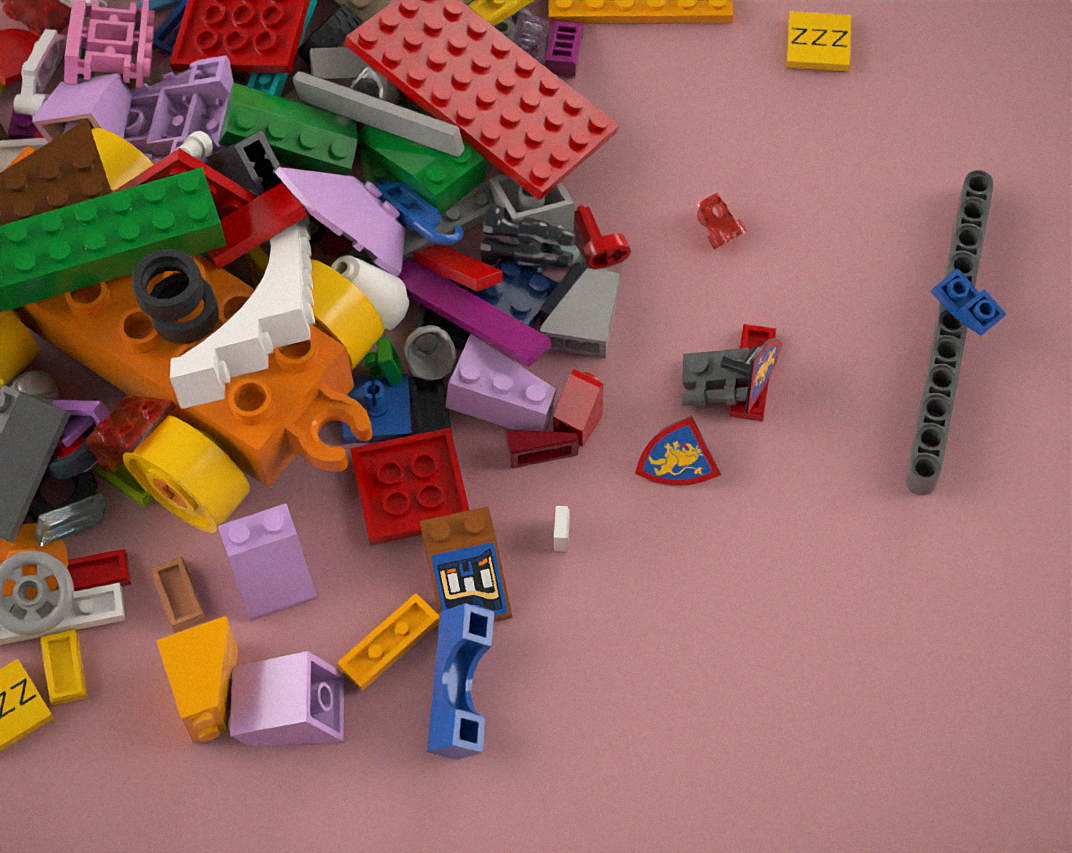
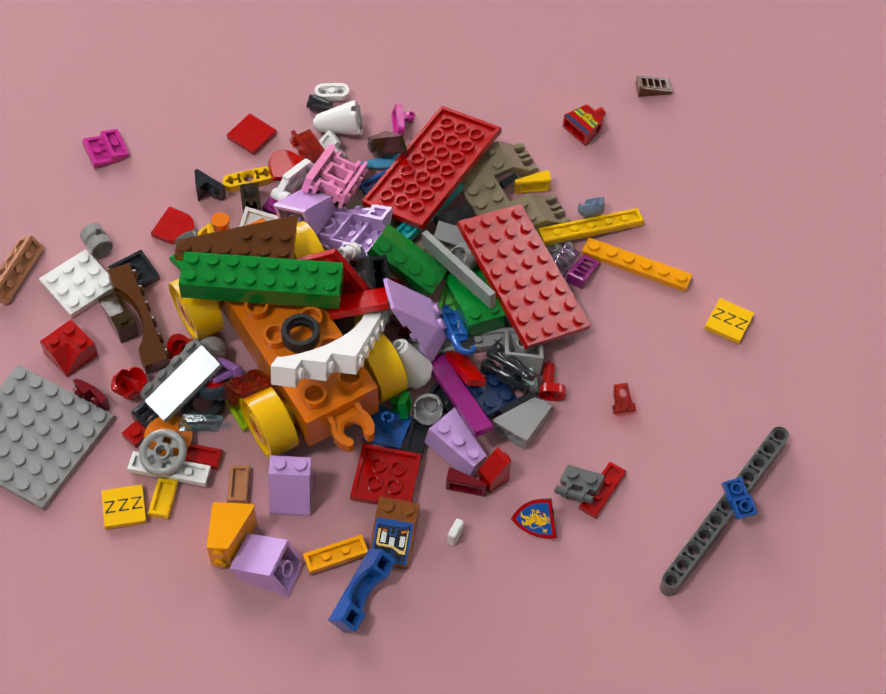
camera: 20 degrees right, 5 degrees down
(160, 262) = (296, 304): black tyre -> none
(757, 366) = (602, 488): shield -> none

